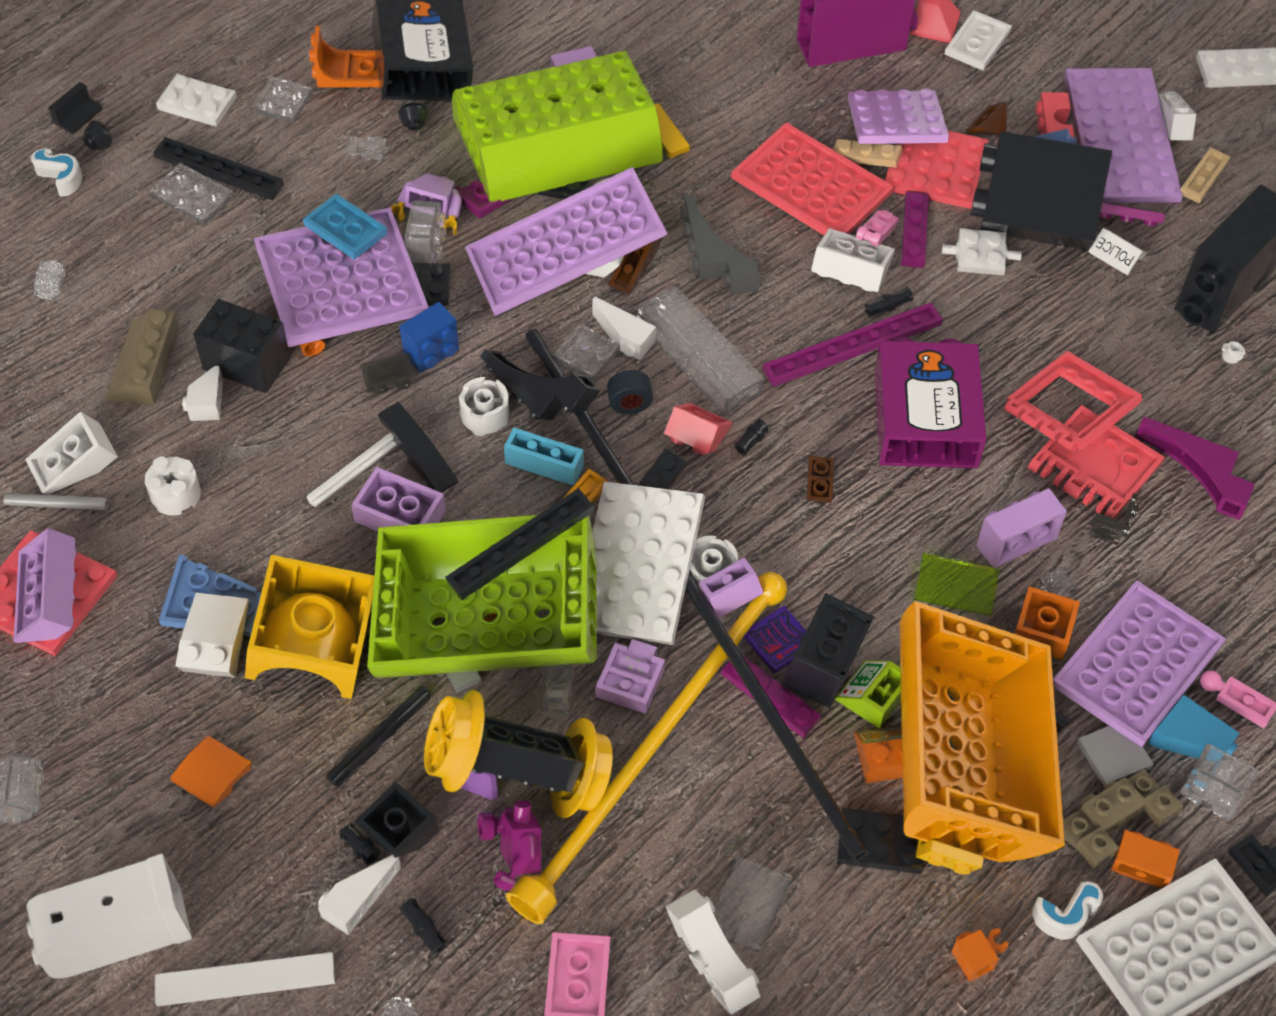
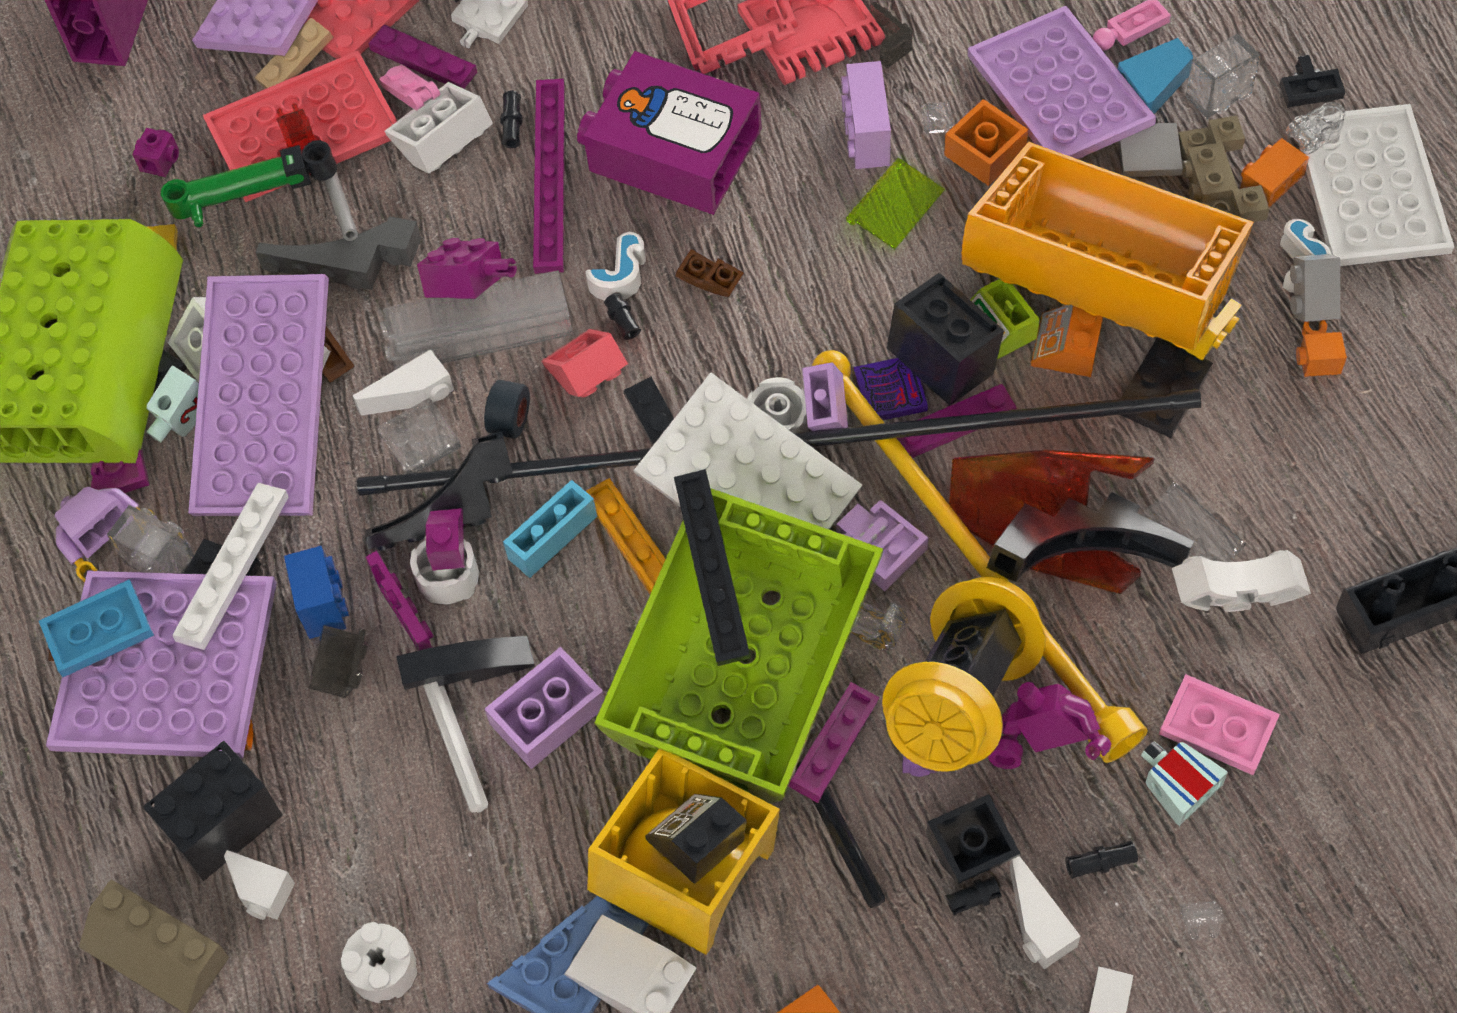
camera: 60 degrees left, 5 degrees up
(307, 620) = (699, 835): none -> black slope
(425, 279) = (230, 566): none -> white plate
(426, 698) = (833, 742): none -> magenta plate
(443, 395) = (402, 607): none -> magenta wing
(495, 388) = (445, 539): none -> magenta slope
(514, 963) = (1181, 779): none -> torso
(537, 197) = (173, 405): none -> light aqua torso
(702, 785) = (995, 487): none -> clear red windscreen
(720, 837) = (1075, 528): none -> black arch
(729, 316) = (463, 269): none -> magenta brick
(740, 109) = (155, 152): none -> magenta brick
(754, 226) = (341, 208): none -> light grey piece
(764, 186) = (292, 168): none -> green piece
(790, 424) = (626, 277): none -> white animal
(795, 176) = (295, 127): none -> clear red brick
(1032, 923) = (1316, 287): none -> light grey brick
(1205, 874) = (1317, 127): none -> clear piece

